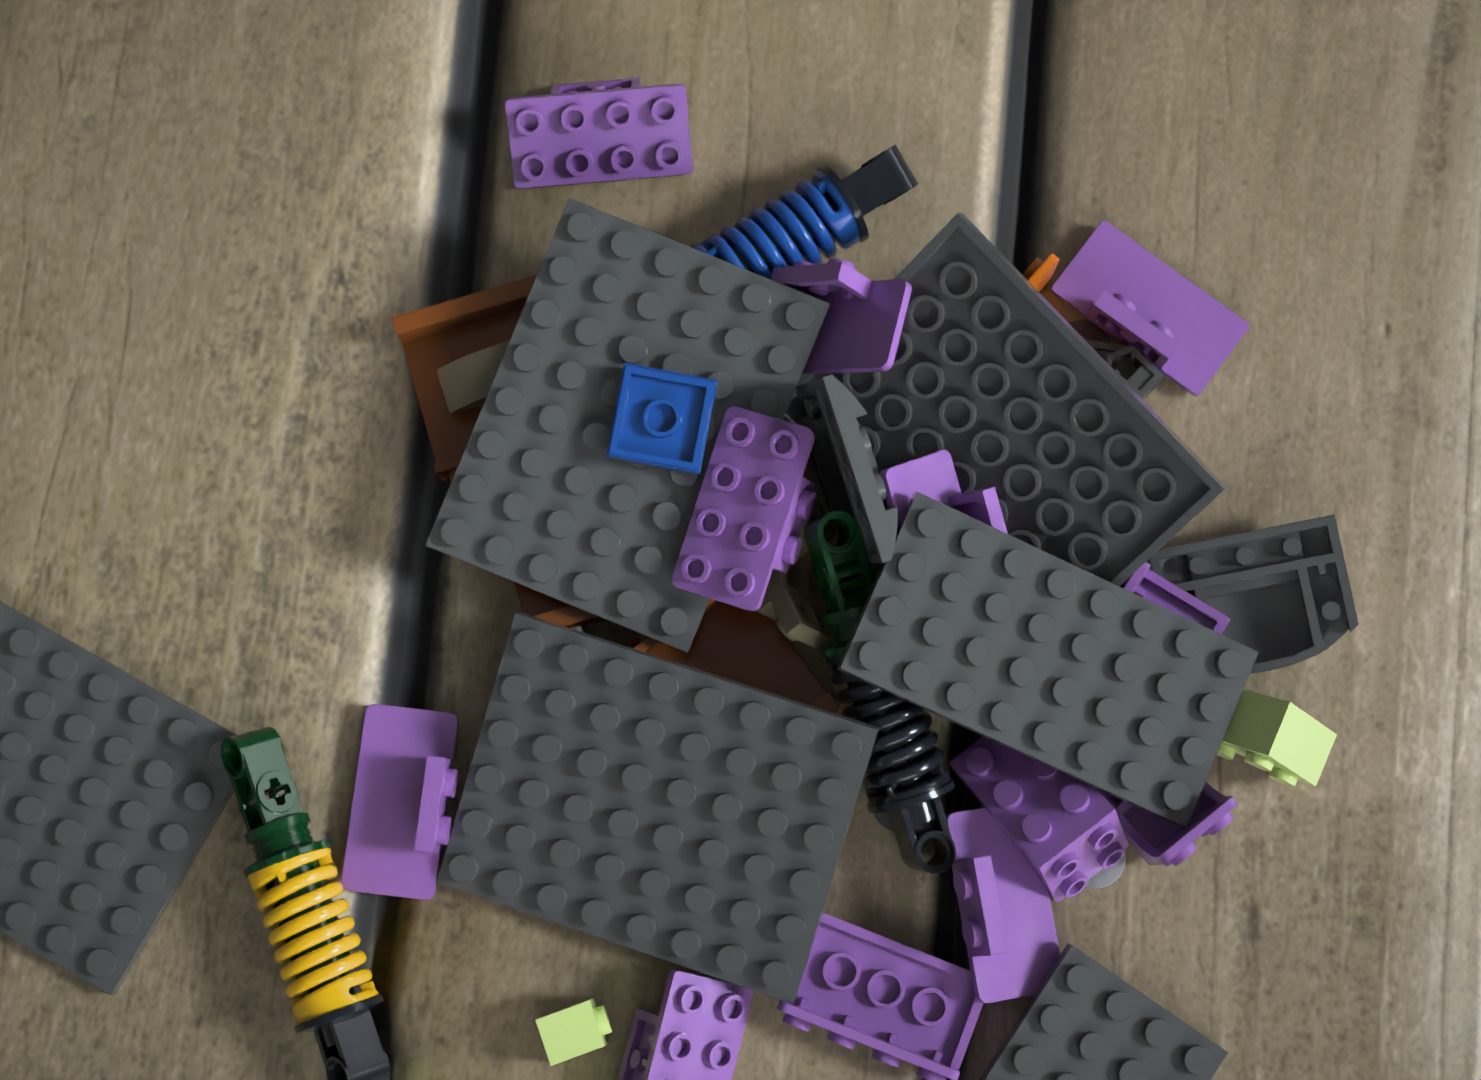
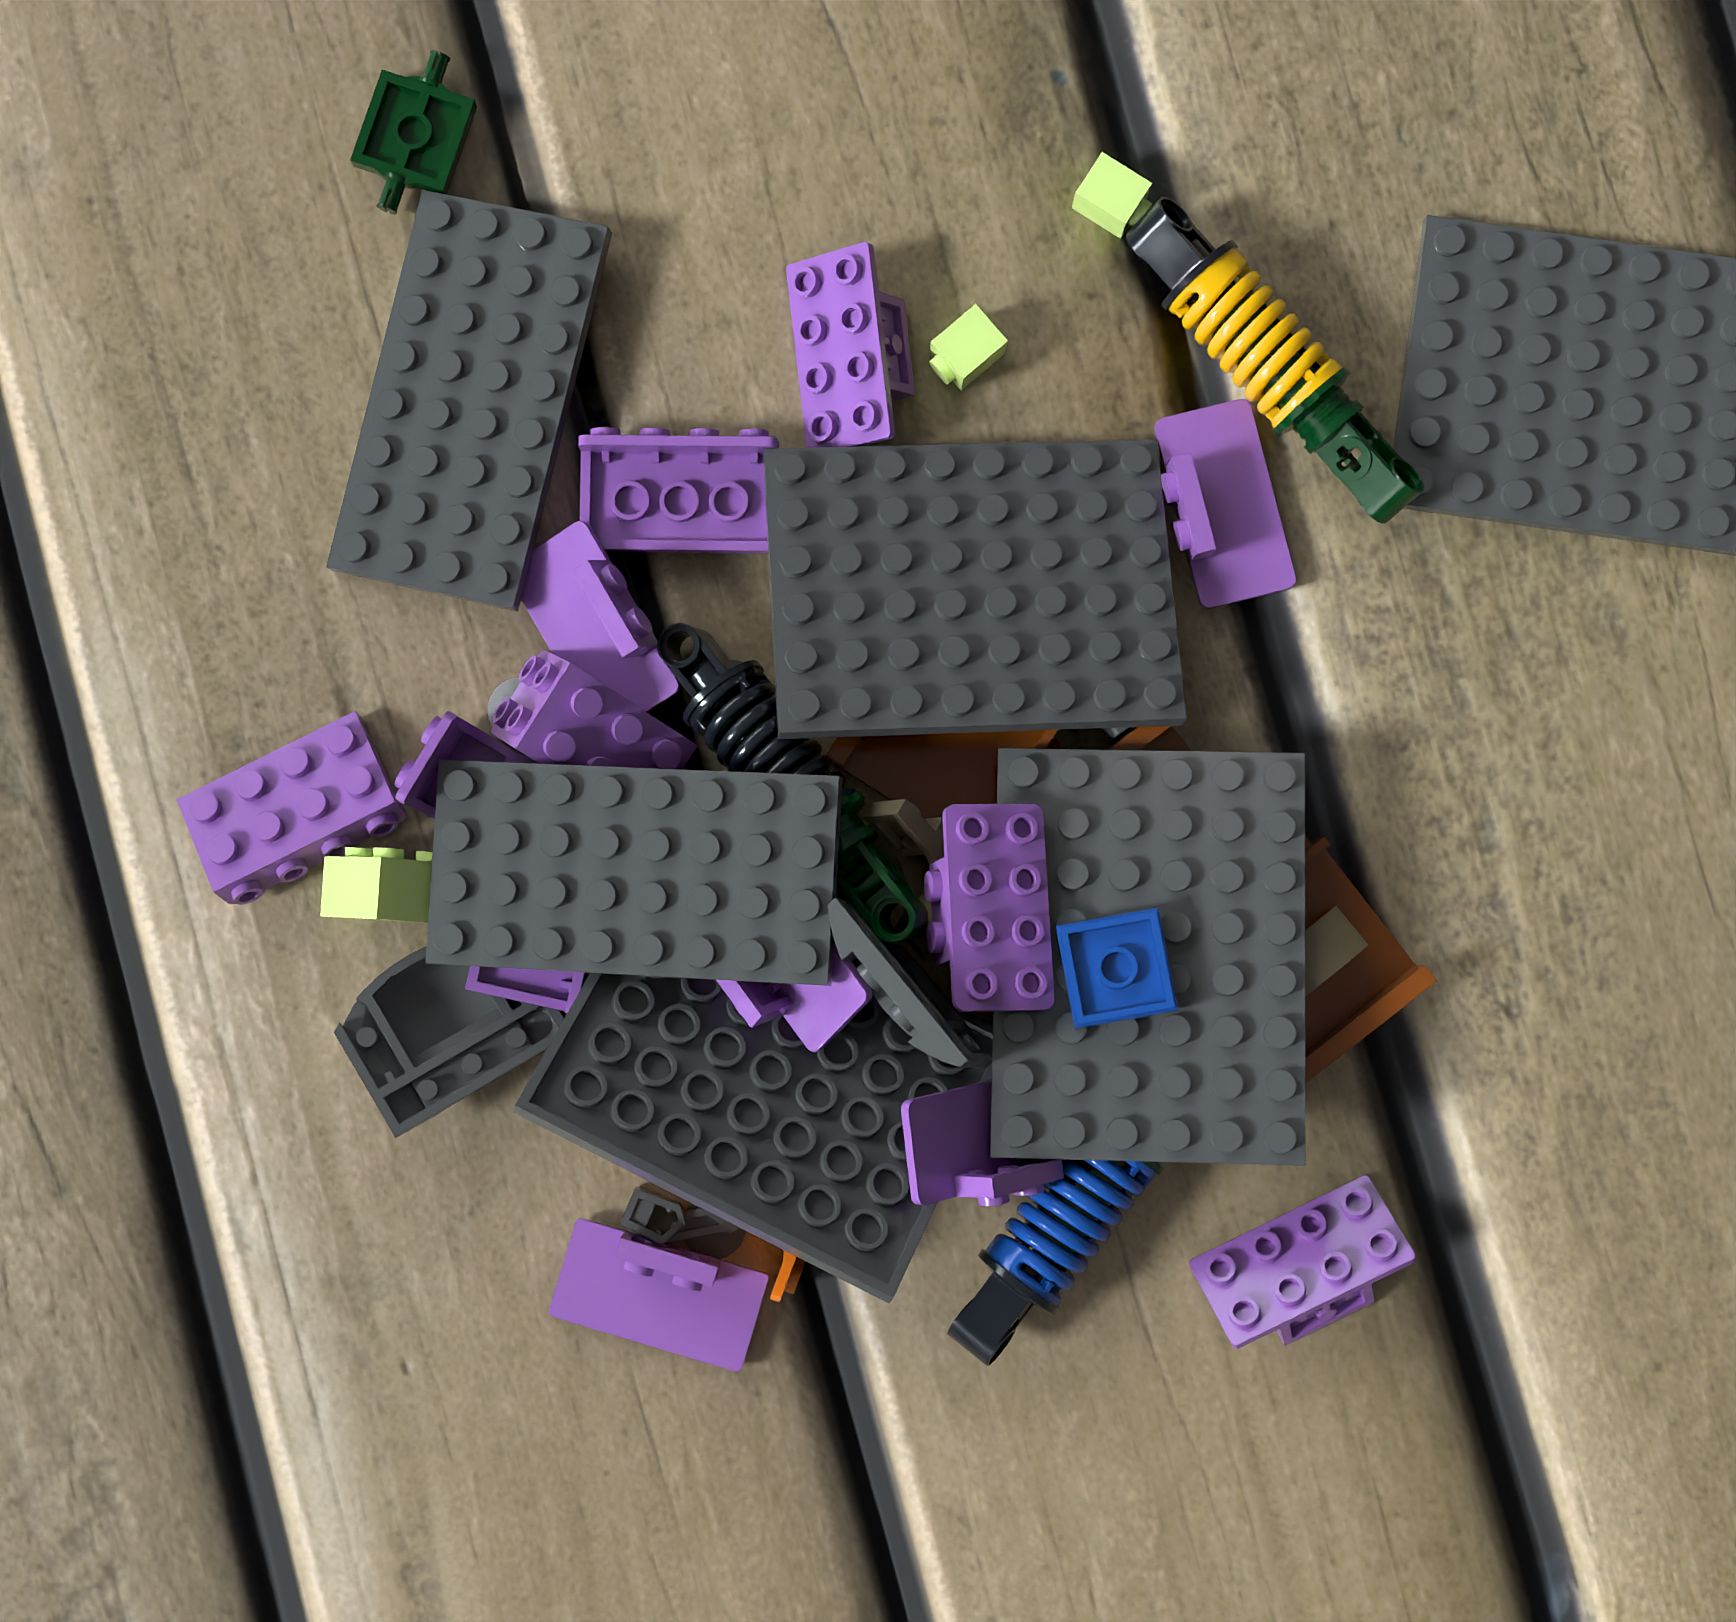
camera: 155 degrees right, 5 degrees up
(1332, 841) = (291, 810): none -> medium lavender bracket

